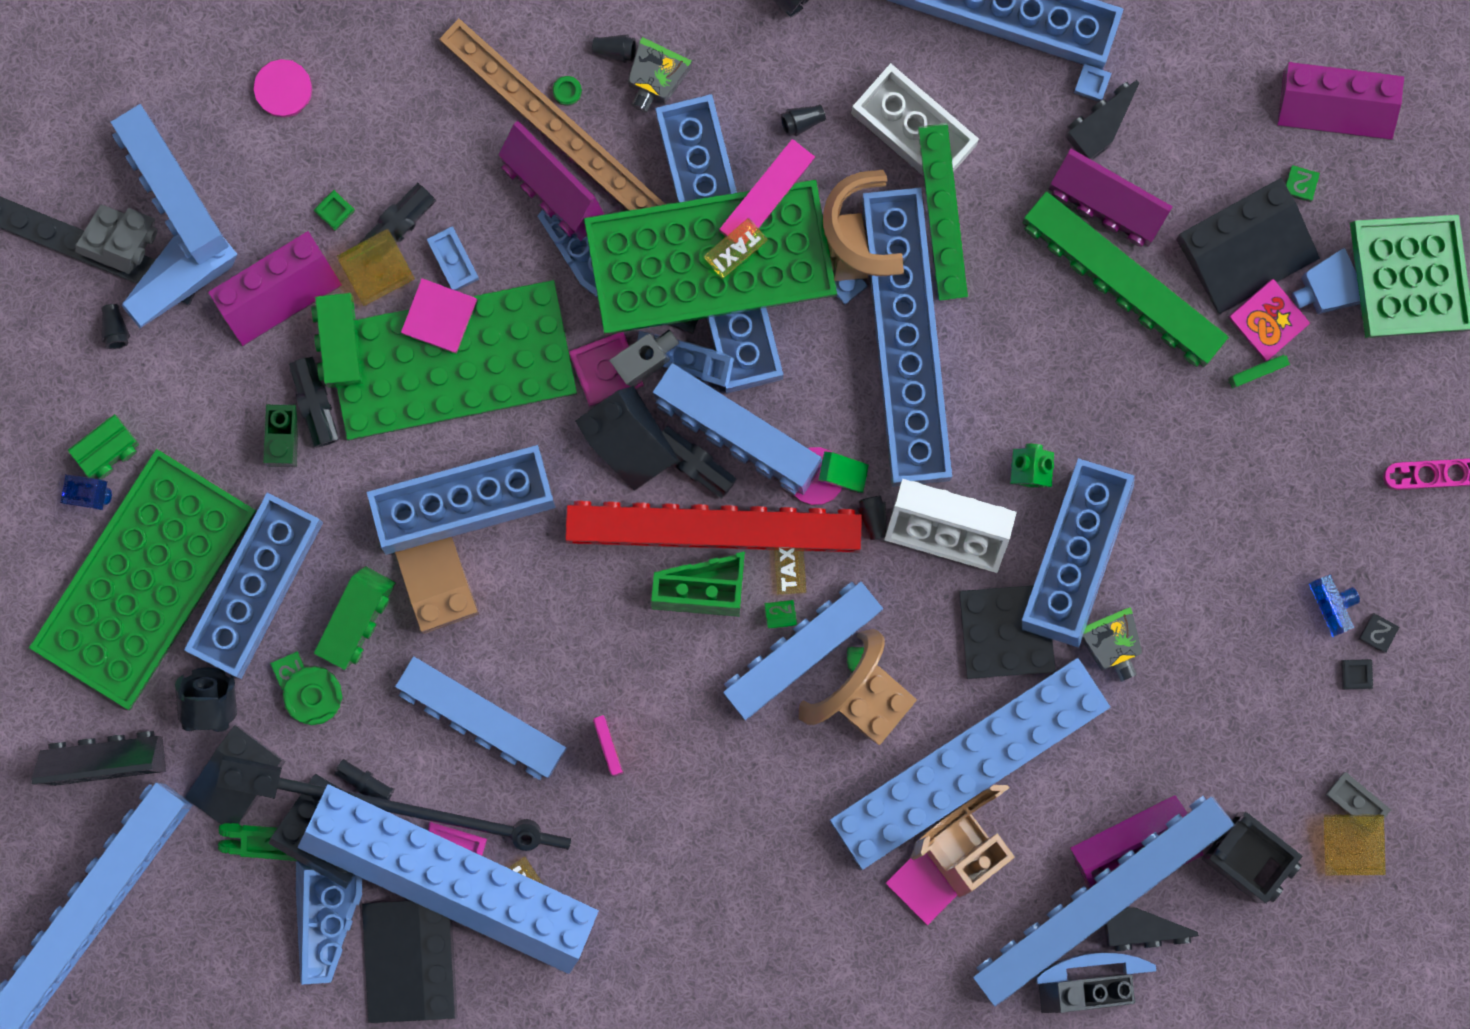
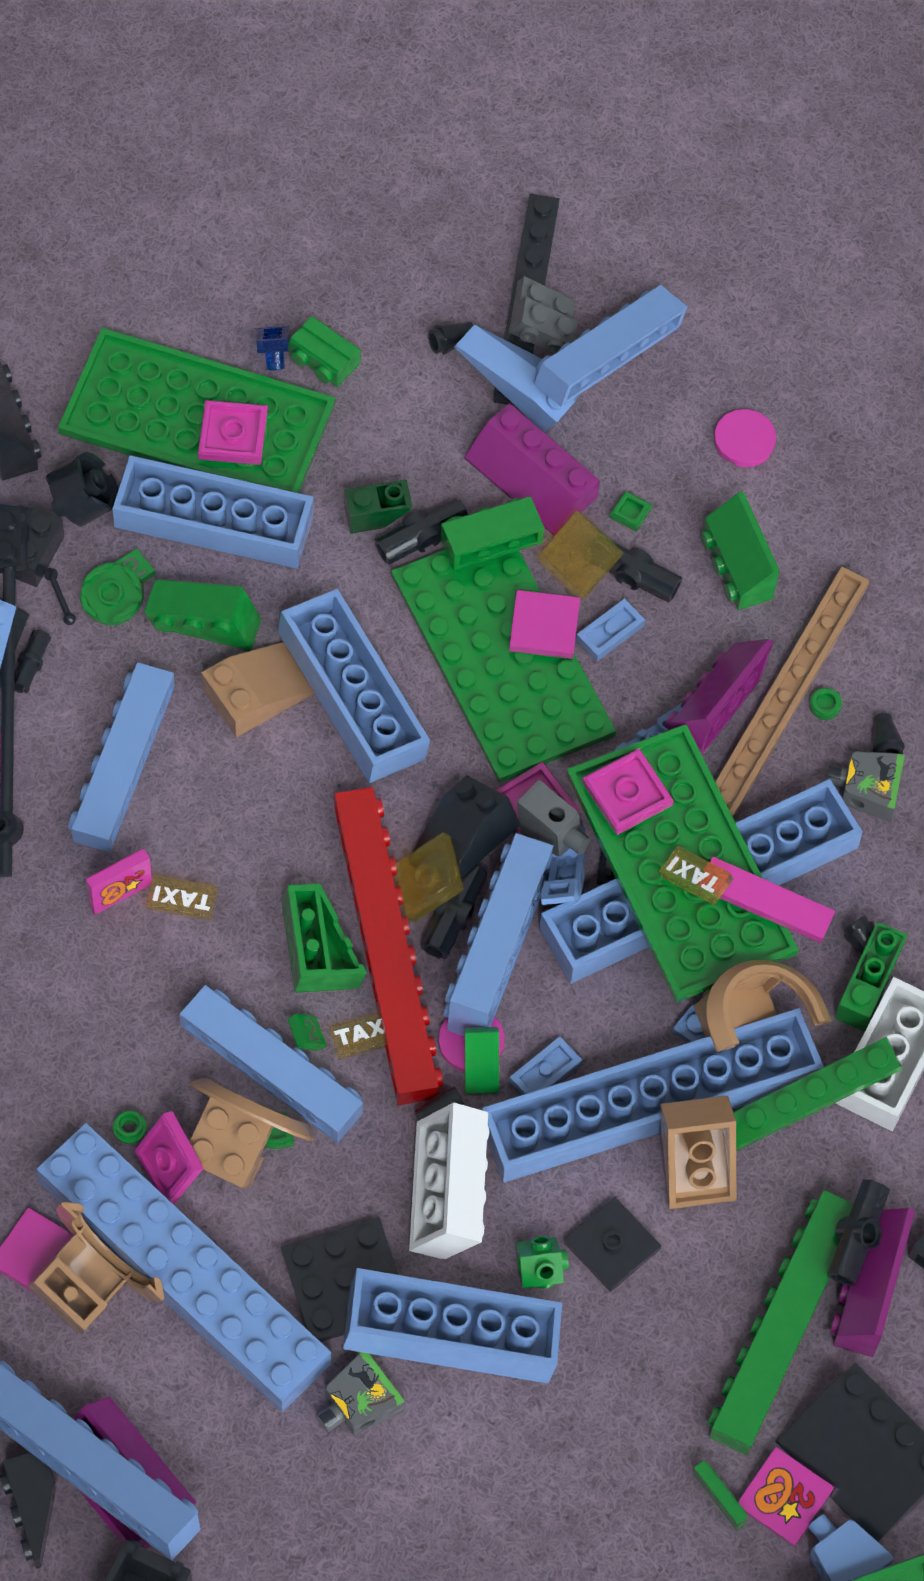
camera: 75 degrees right, 20 degrees down
(173, 550) = (233, 432): none -> dark pink tile
(277, 745) = (51, 575): none -> black hinge
(408, 125) = (740, 553): none -> green slope
(626, 694) = (182, 897): none -> clear yellow tile
(639, 285) = (627, 791): none -> dark pink tile
(664, 477) = (429, 877): none -> clear yellow tile
(830, 773) = (125, 1118): none -> green plate
(840, 124) = (871, 976): none -> green slope
(859, 420) = (546, 1068): none -> medium blue plate
(875, 756) = (168, 1157): none -> dark pink tile
(969, 310) = (699, 1151): none -> medium nougat slope
(1024, 403) = (612, 1244): none -> black plate
(1073, 199) = (858, 1232): none -> black piece

